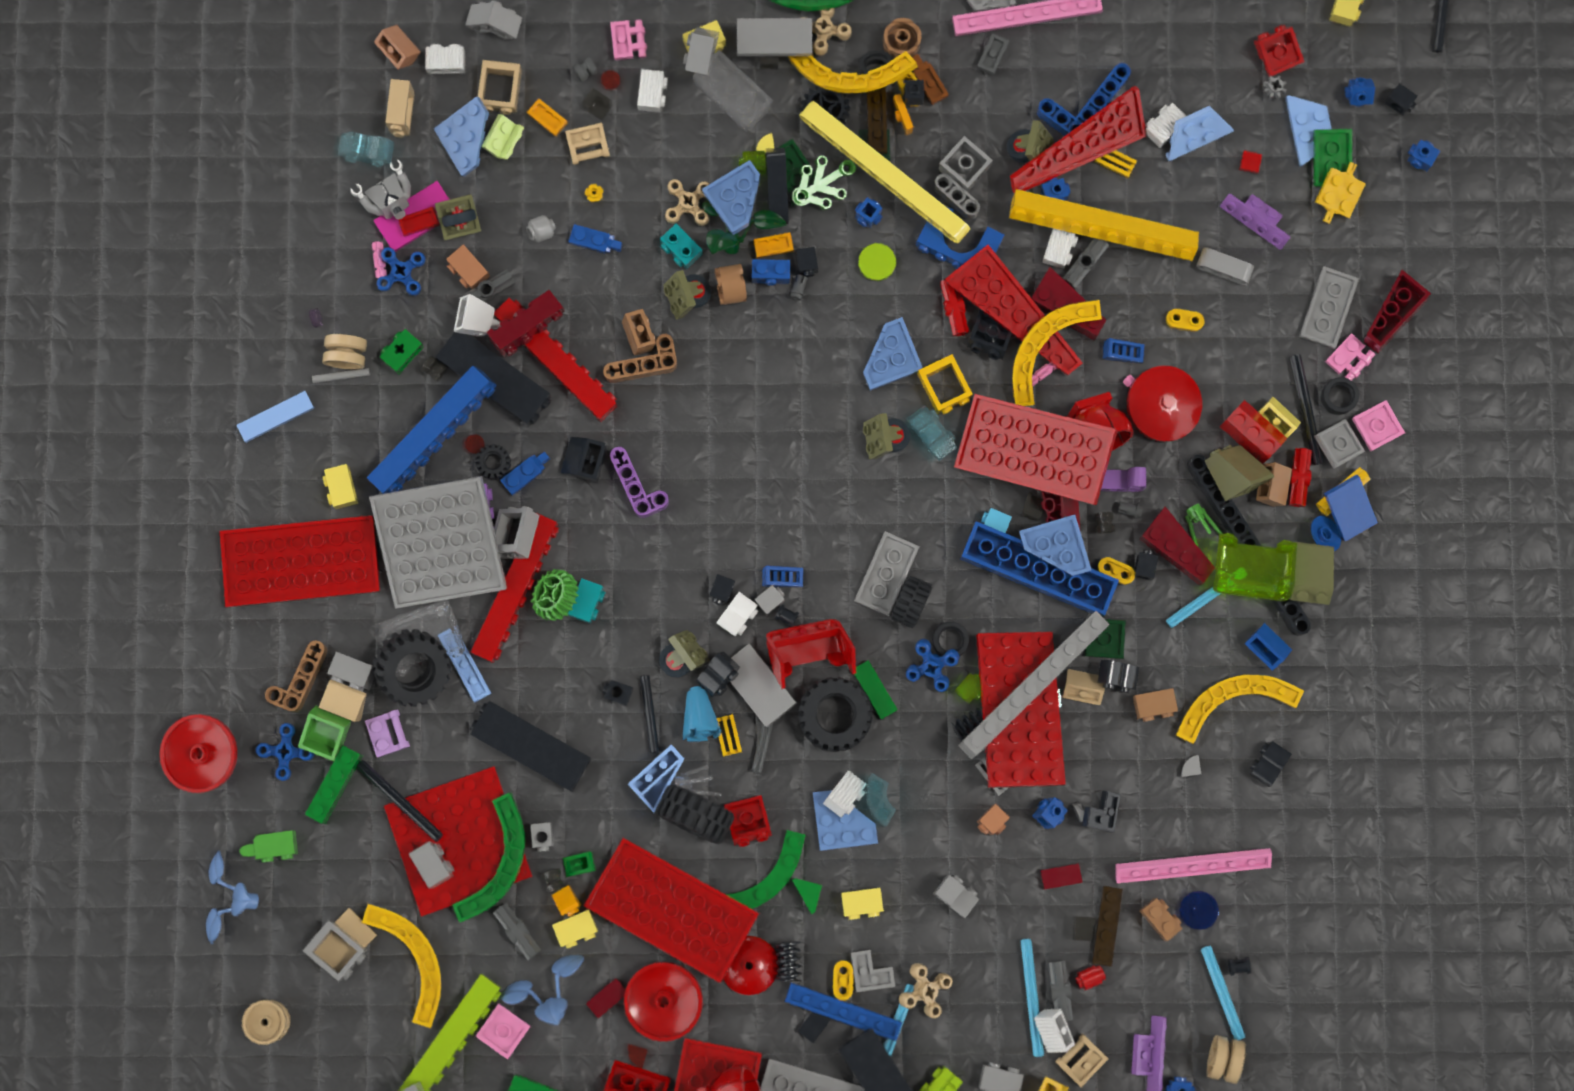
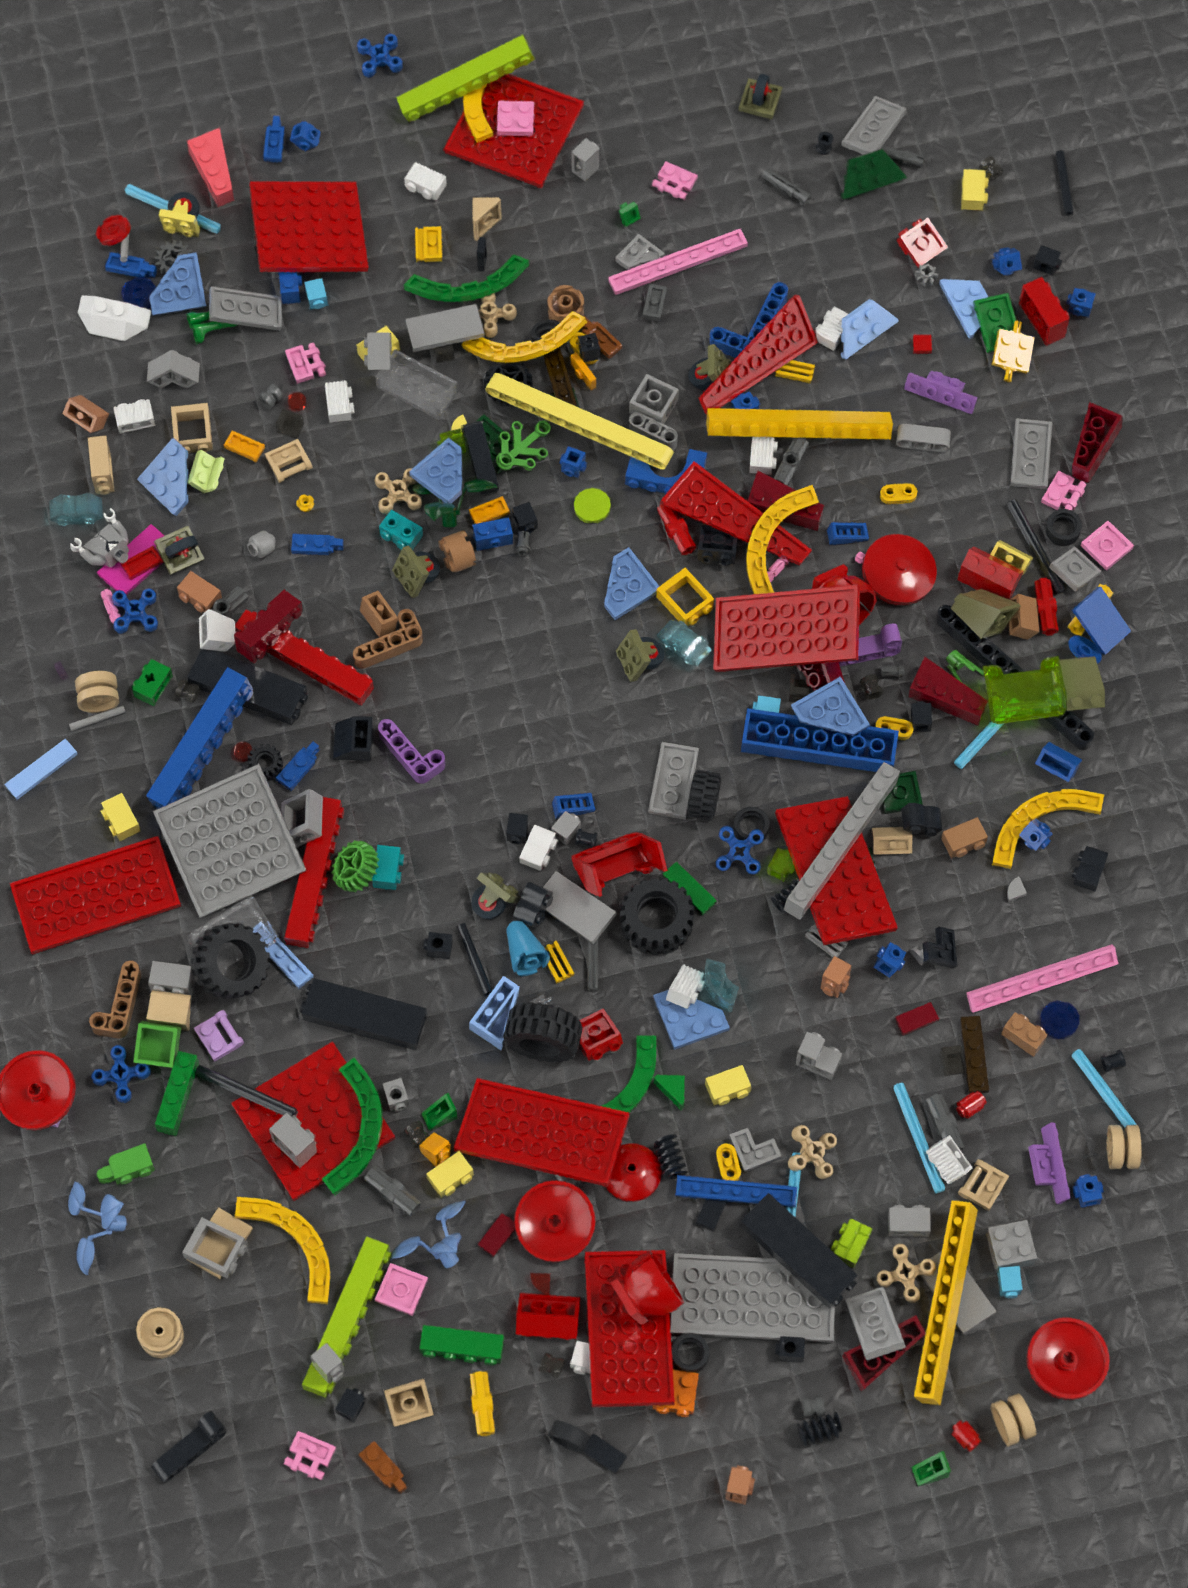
camera: 10 degrees left, 15 degrees down
(1226, 718) = (1036, 835): none -> blue brick
(1383, 157) = (1044, 311): none -> red brick

